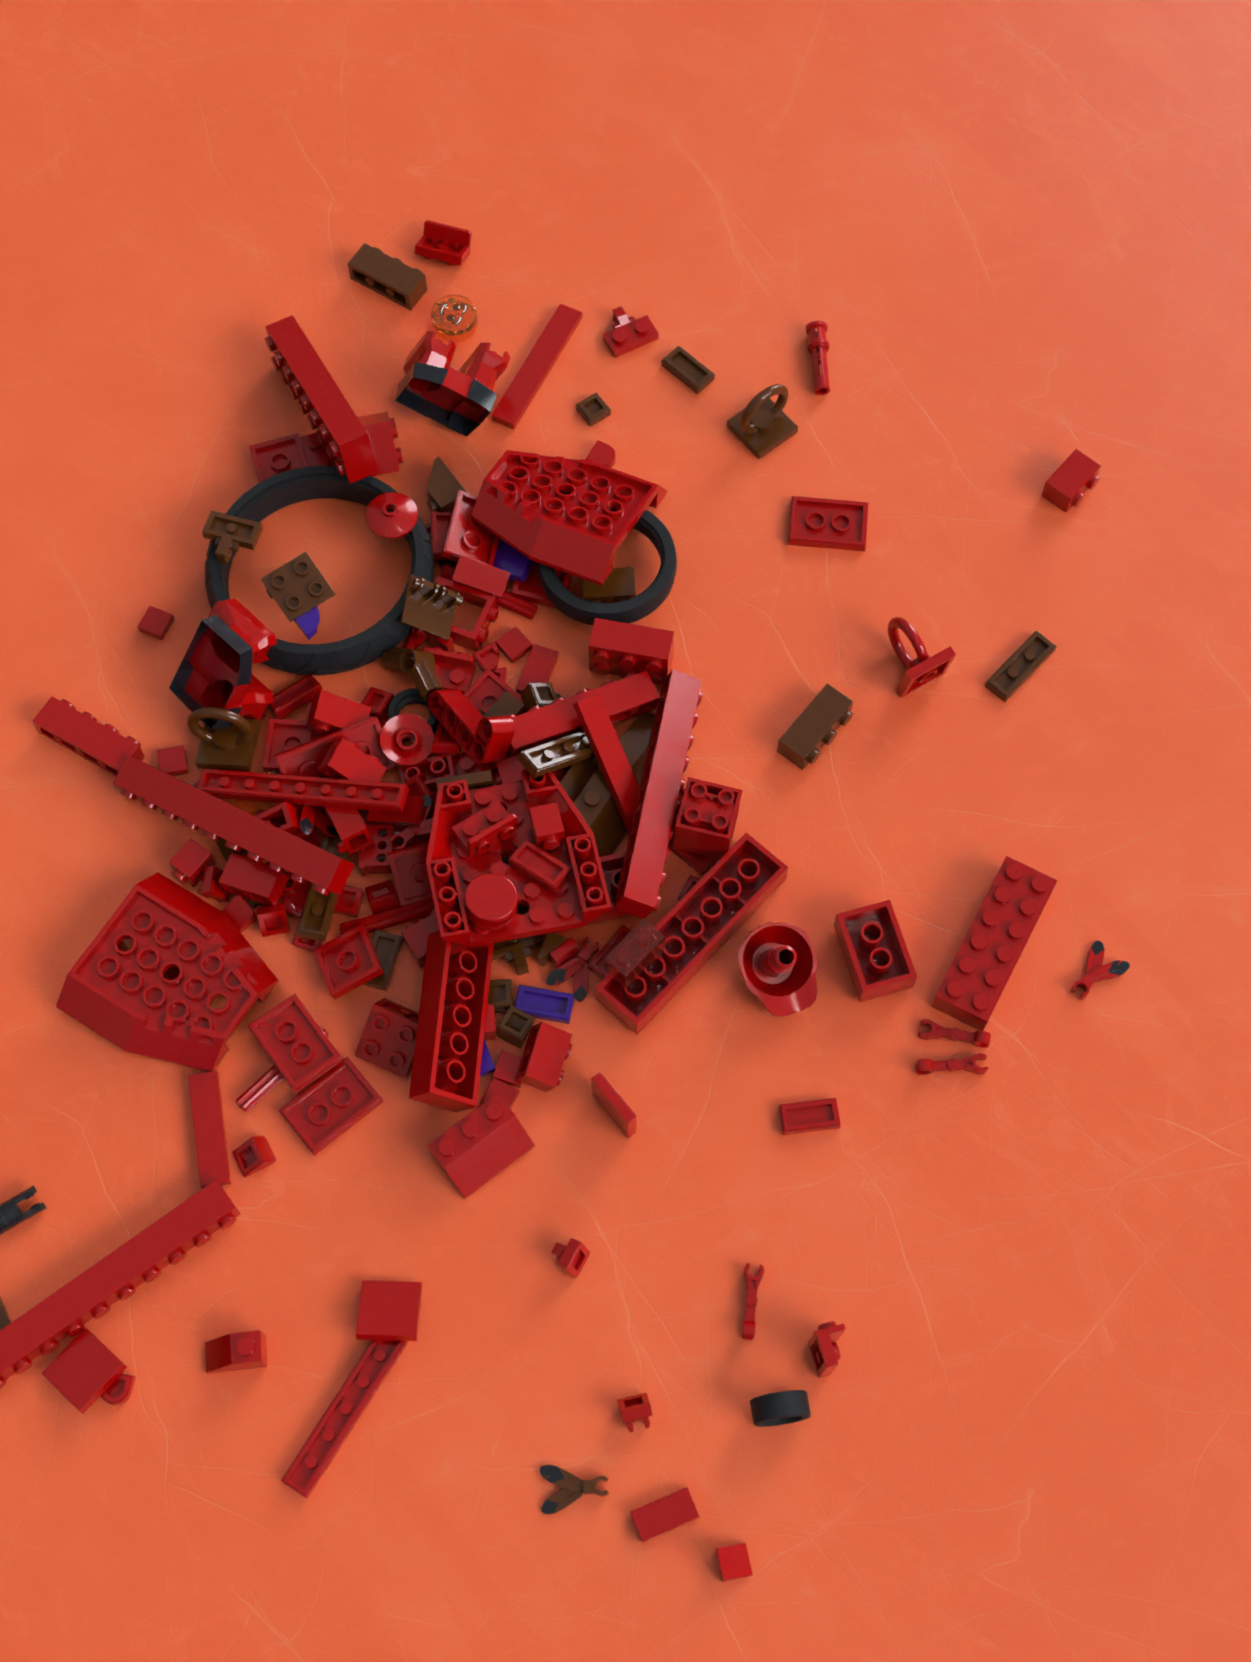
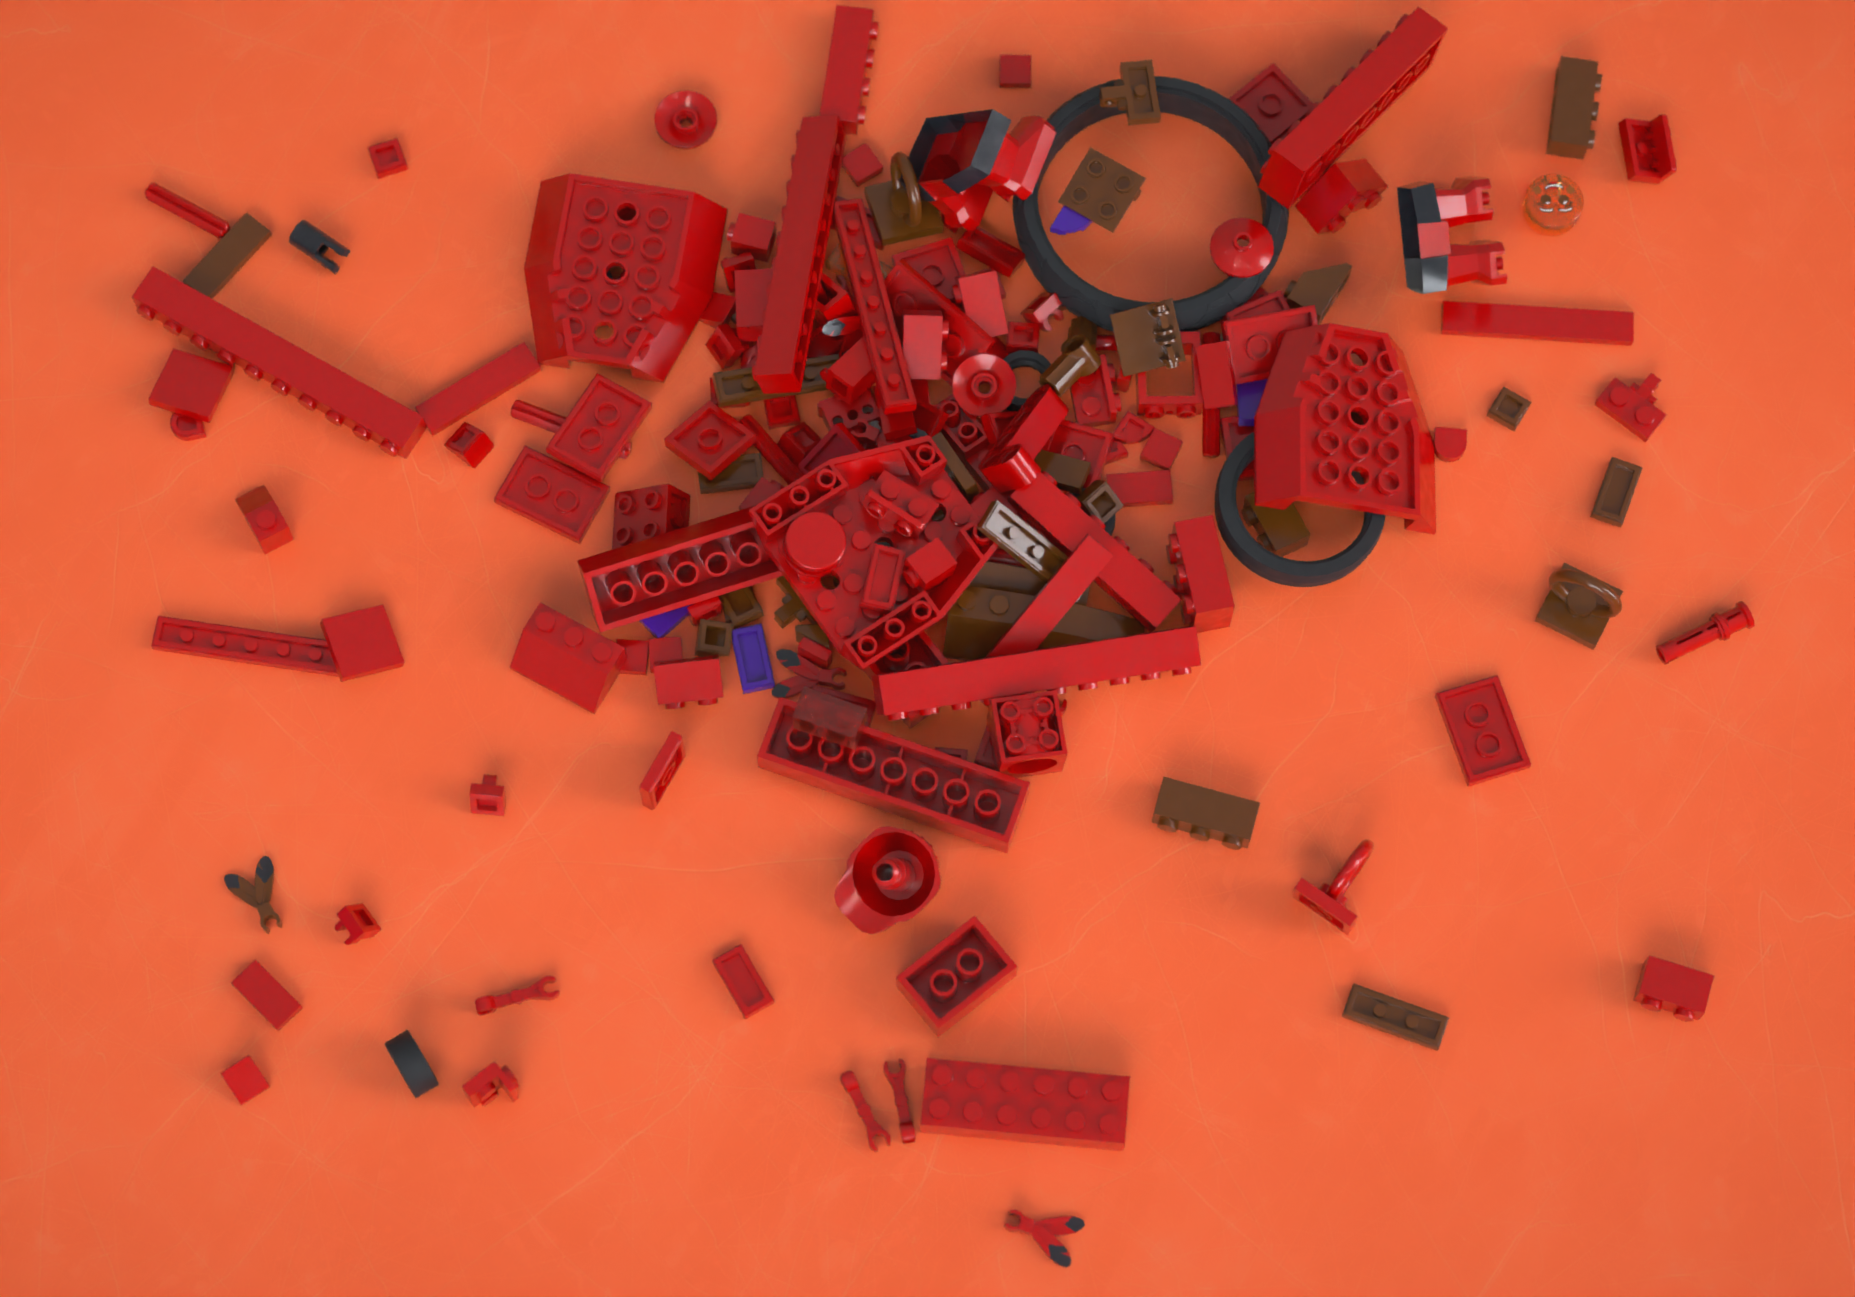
camera: 65 degrees right, 5 degrees up
(56, 866) = (683, 107): none -> red dish
(361, 679) = (1041, 308): none -> red tile

